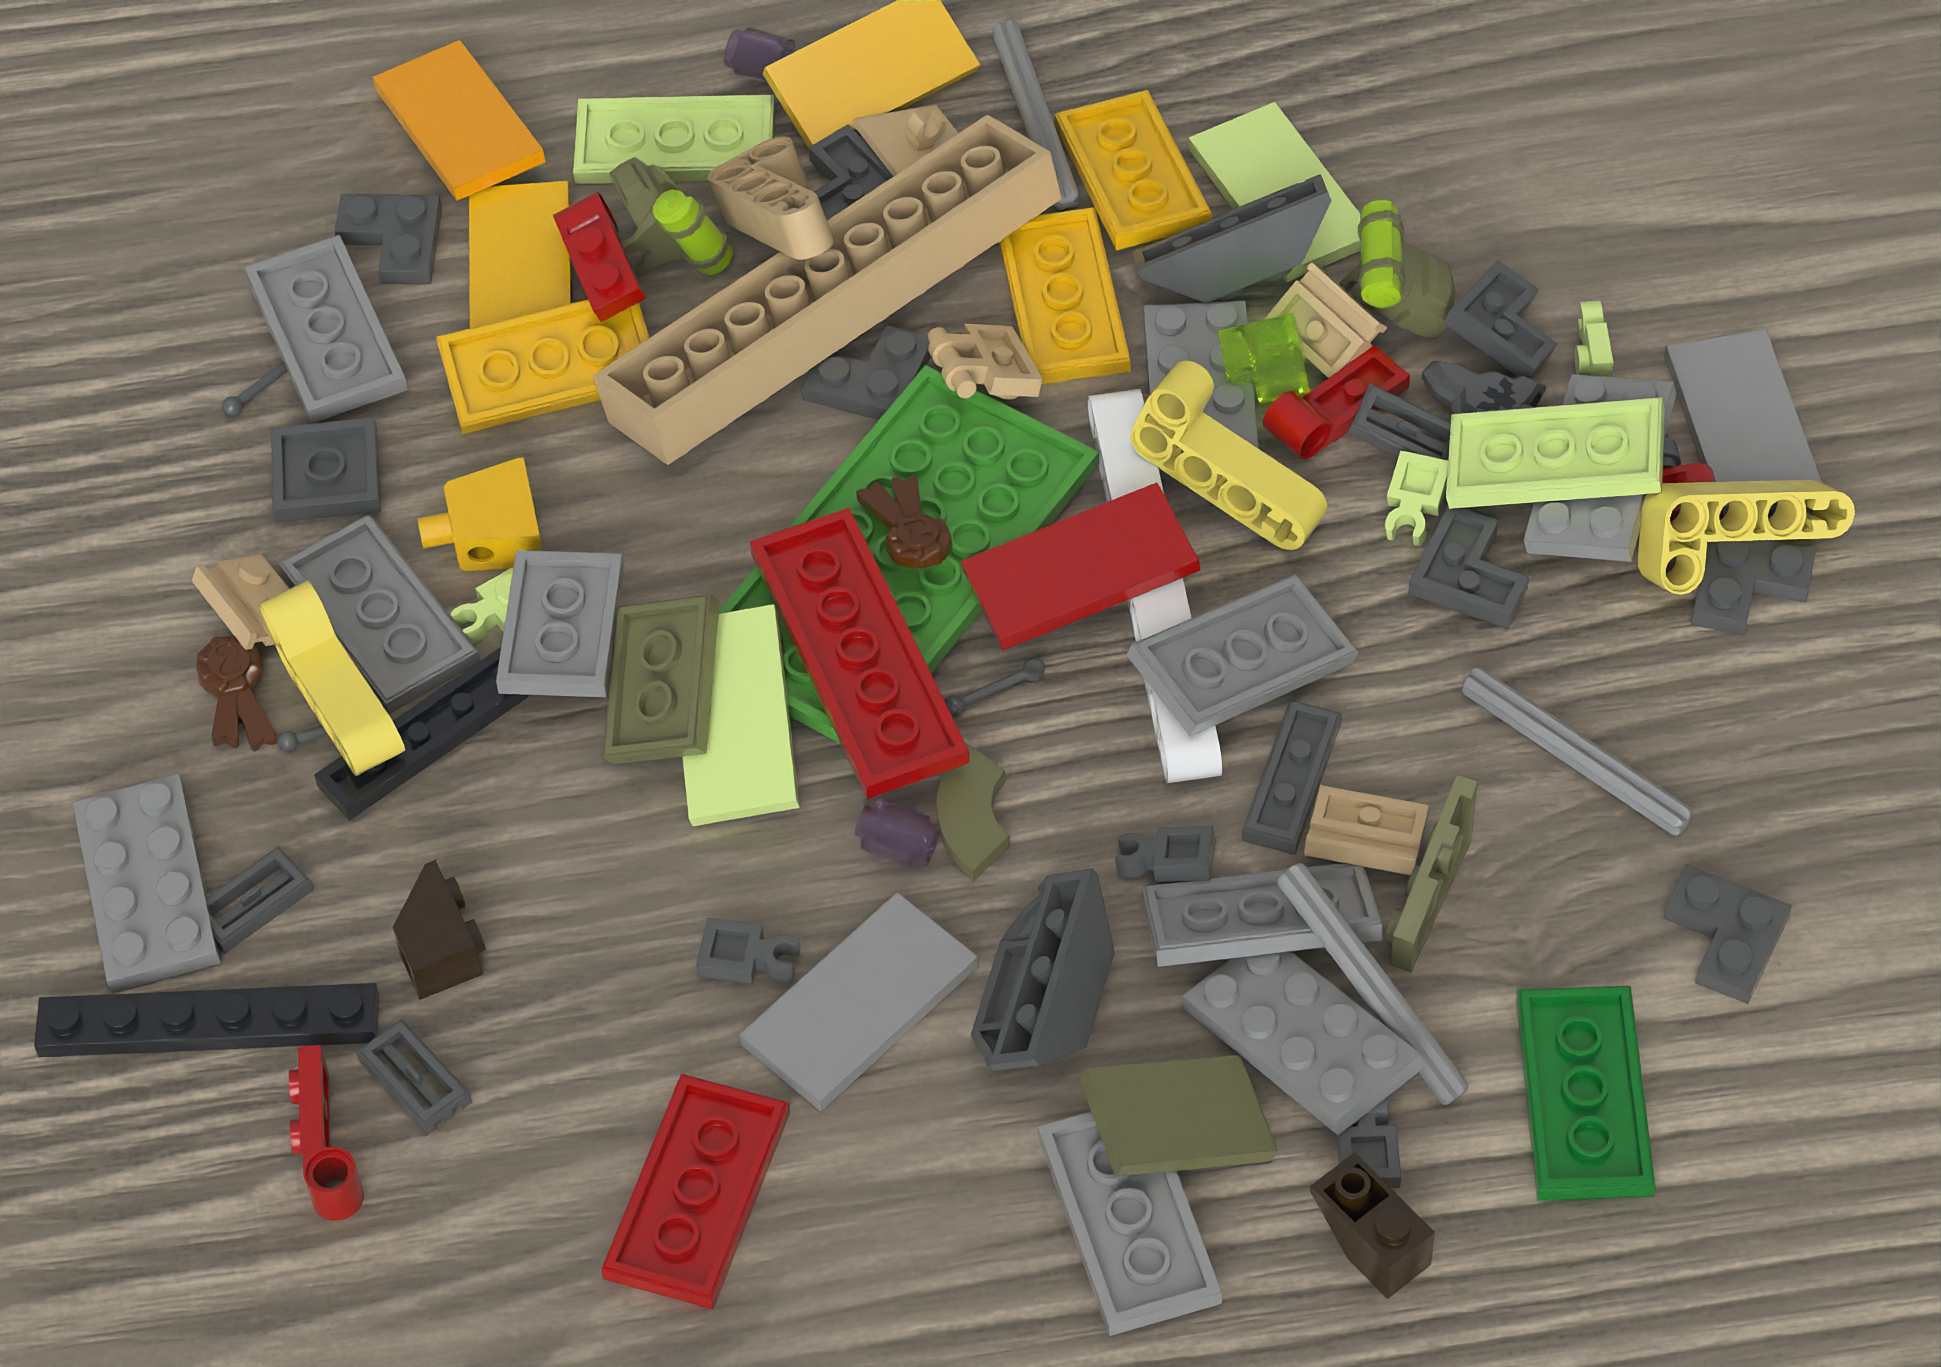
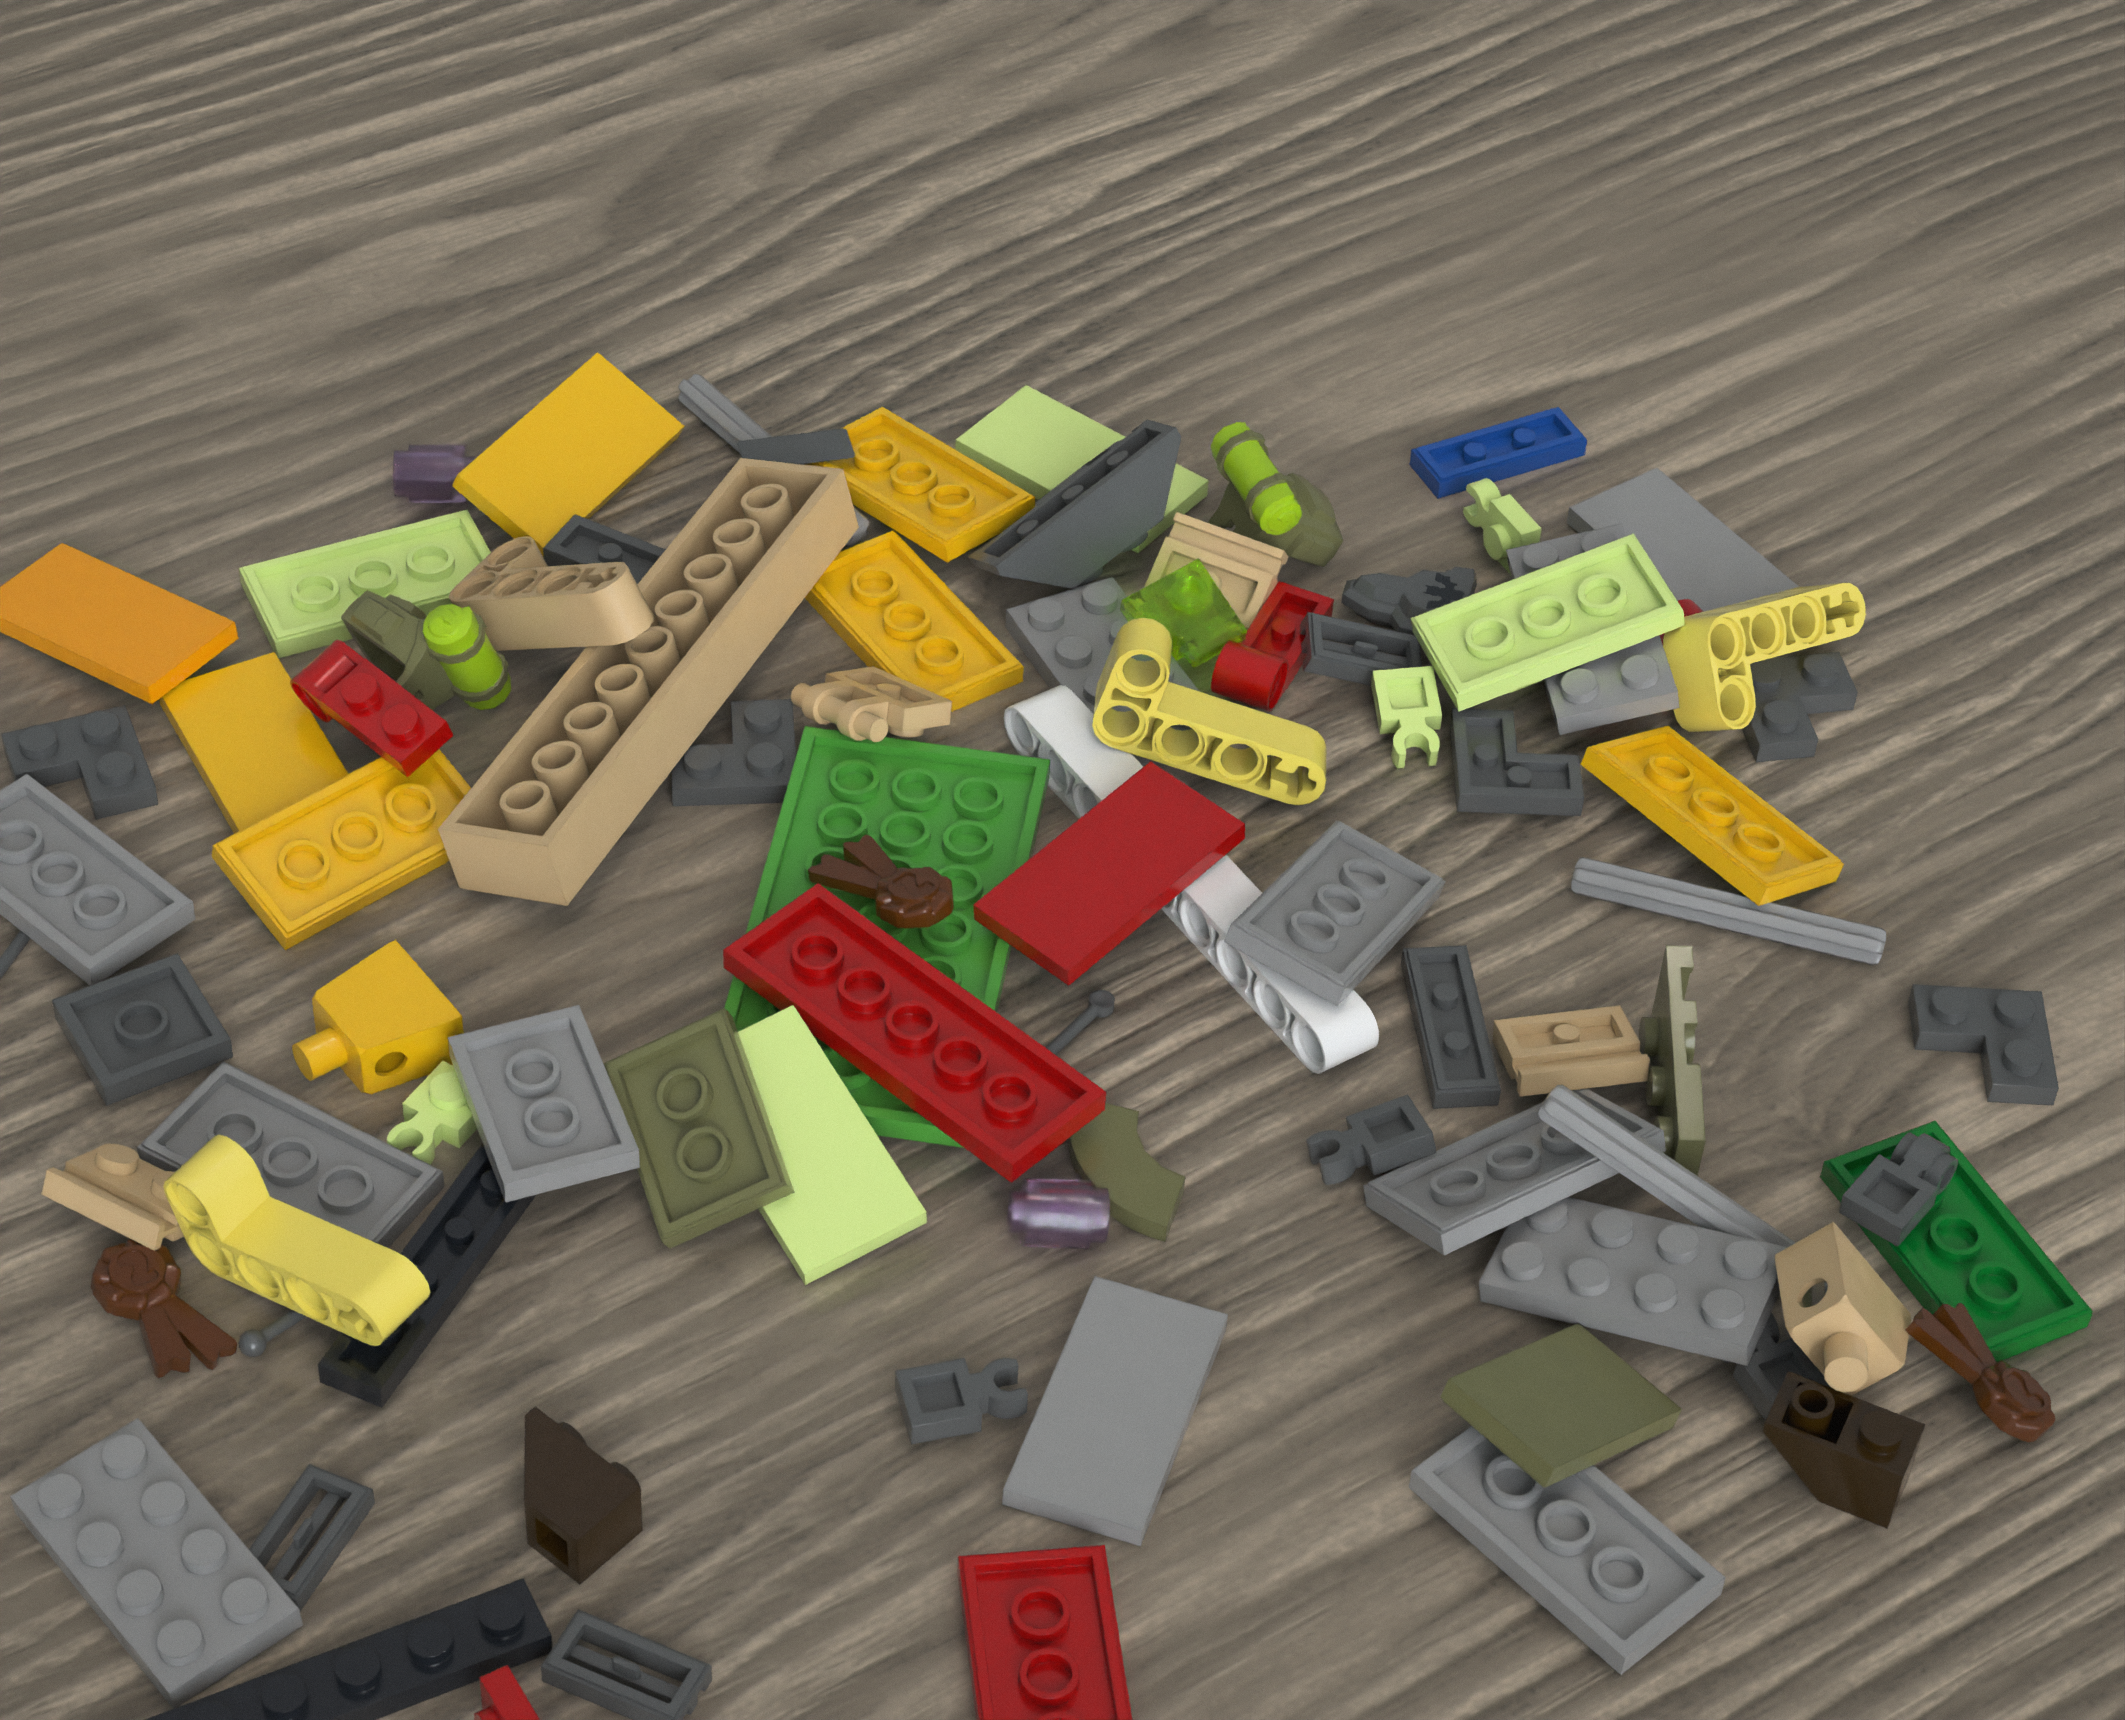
camera: 30 degrees left, 10 degrees down
(905, 135) = (650, 510): tan piece -> none
(1047, 976) = (1321, 1306): dark grey wedge -> none
(1051, 112) = (800, 448): none -> dark grey sticker
(1425, 1122) = (1856, 1327): none -> tan torso
(1492, 321) = (1378, 524): dark grey plate -> none
(1536, 1229) = (2003, 1392): none -> reddish brown piece
(1543, 1040) = (1900, 1191): none -> dark grey plate
(1610, 663) = (1713, 815): none -> yellow tile
(1642, 274) = (1498, 452): none -> blue tile

